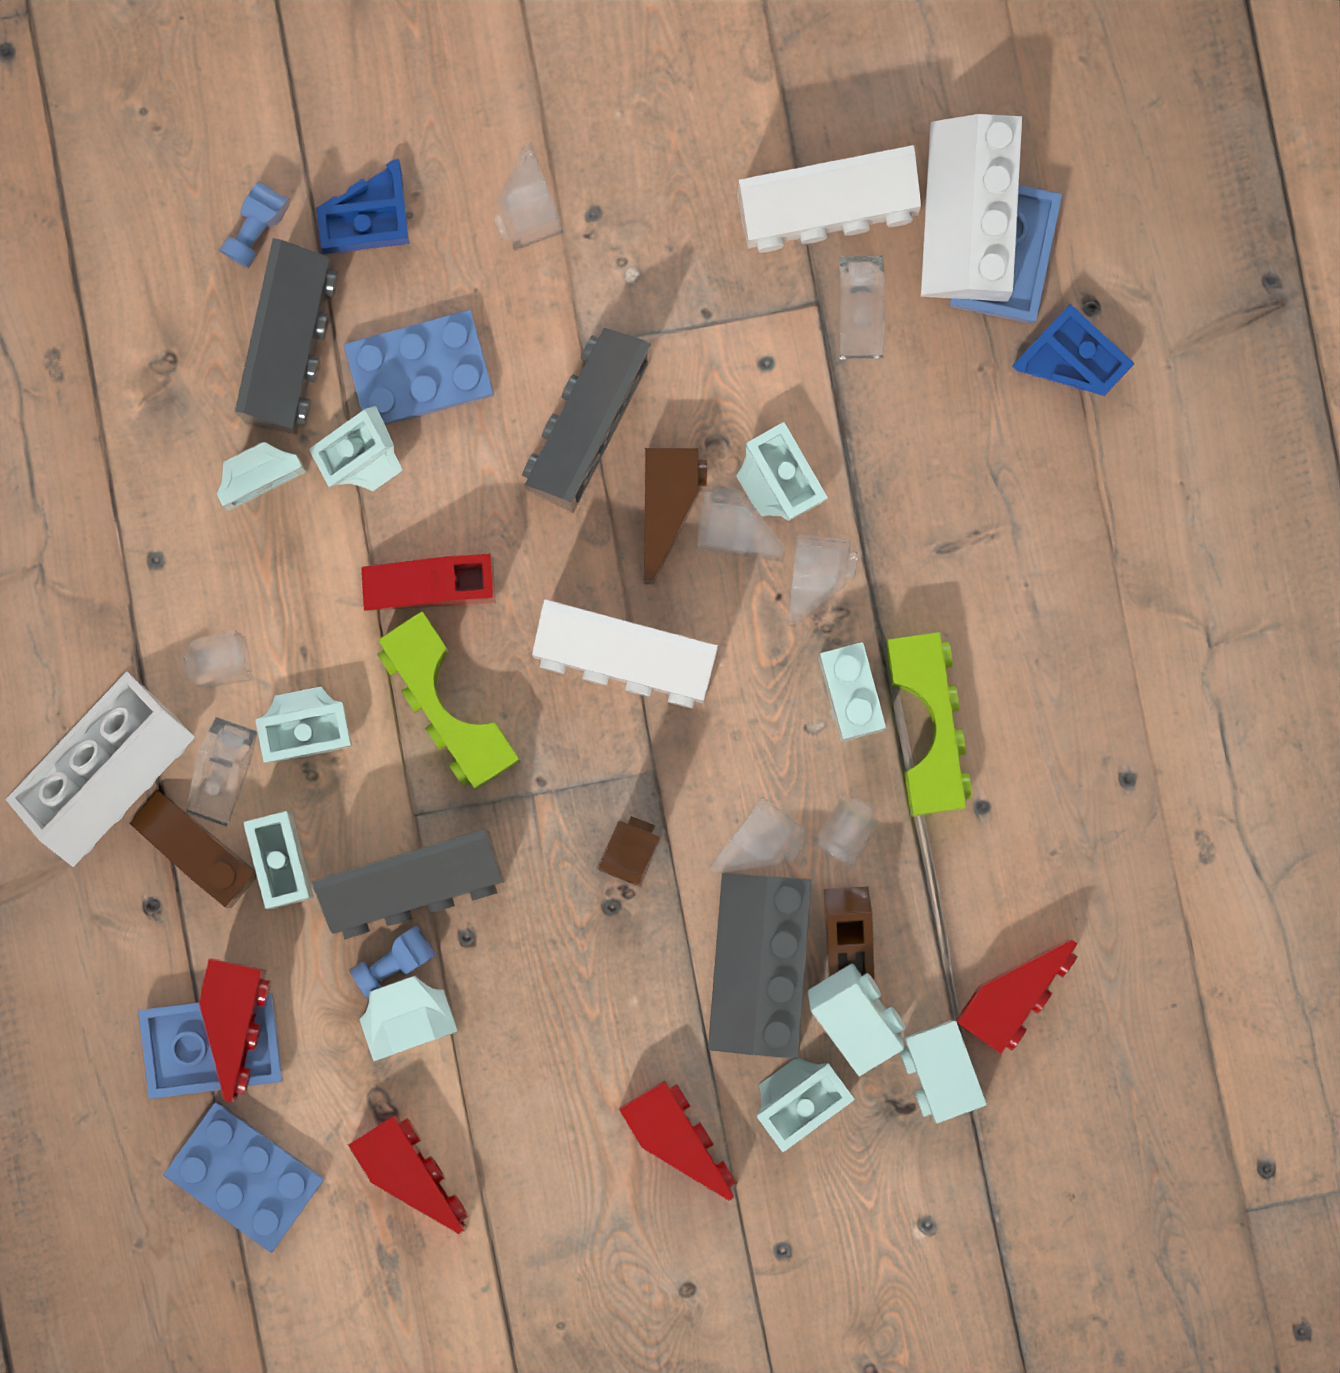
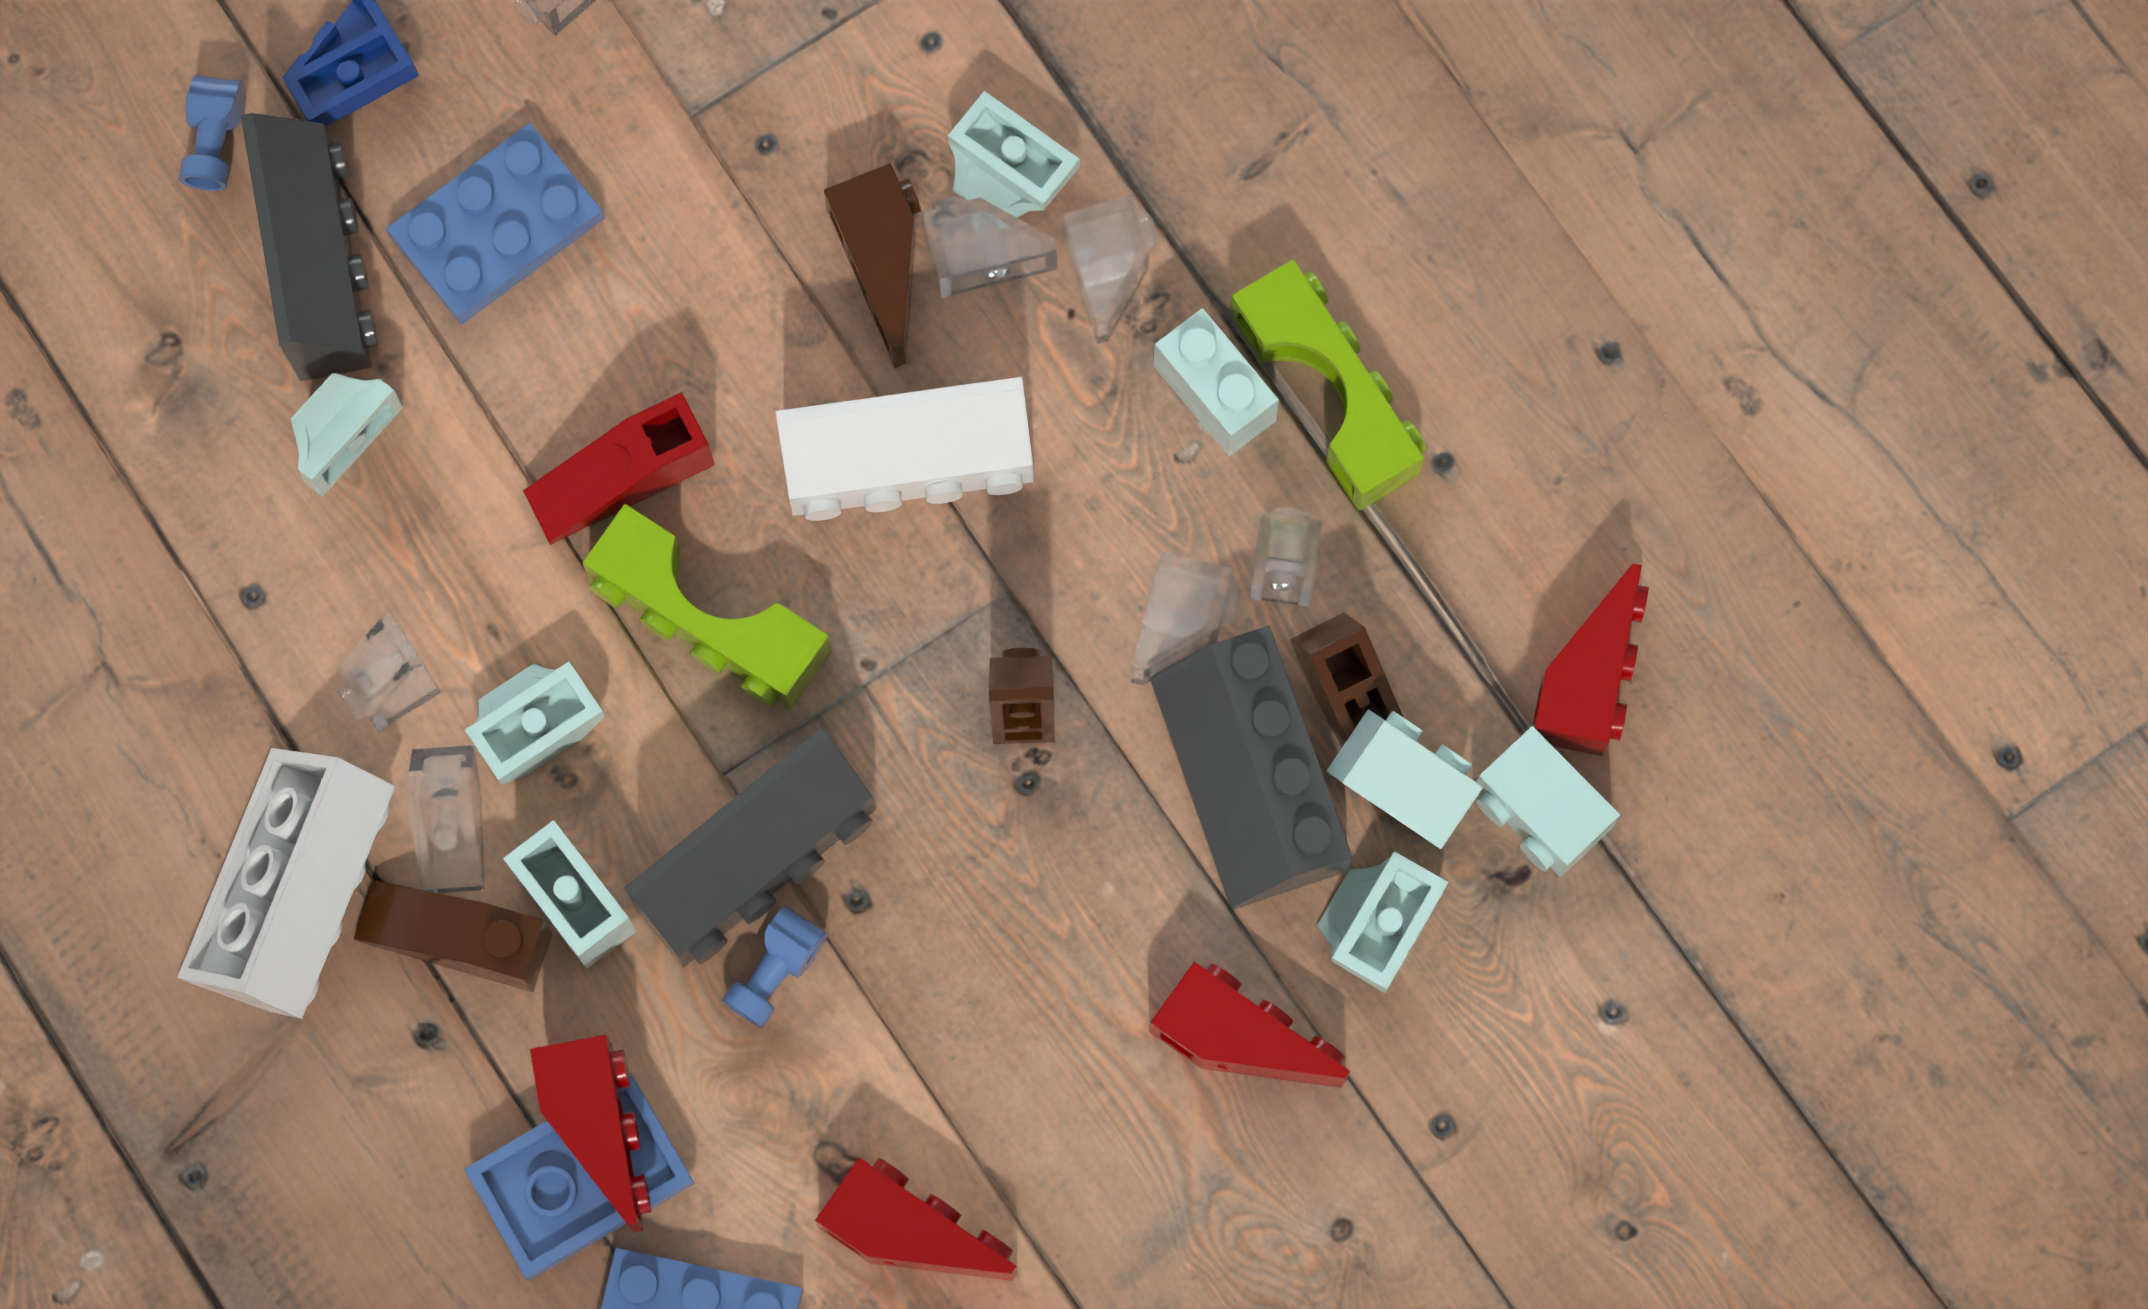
camera: 25 degrees left, 10 degrees down
(358, 453) = (460, 348): light aqua slope -> none
(405, 1017) = (820, 1031): light aqua slope -> none
(588, 418) = (736, 187): dark grey slope -> none

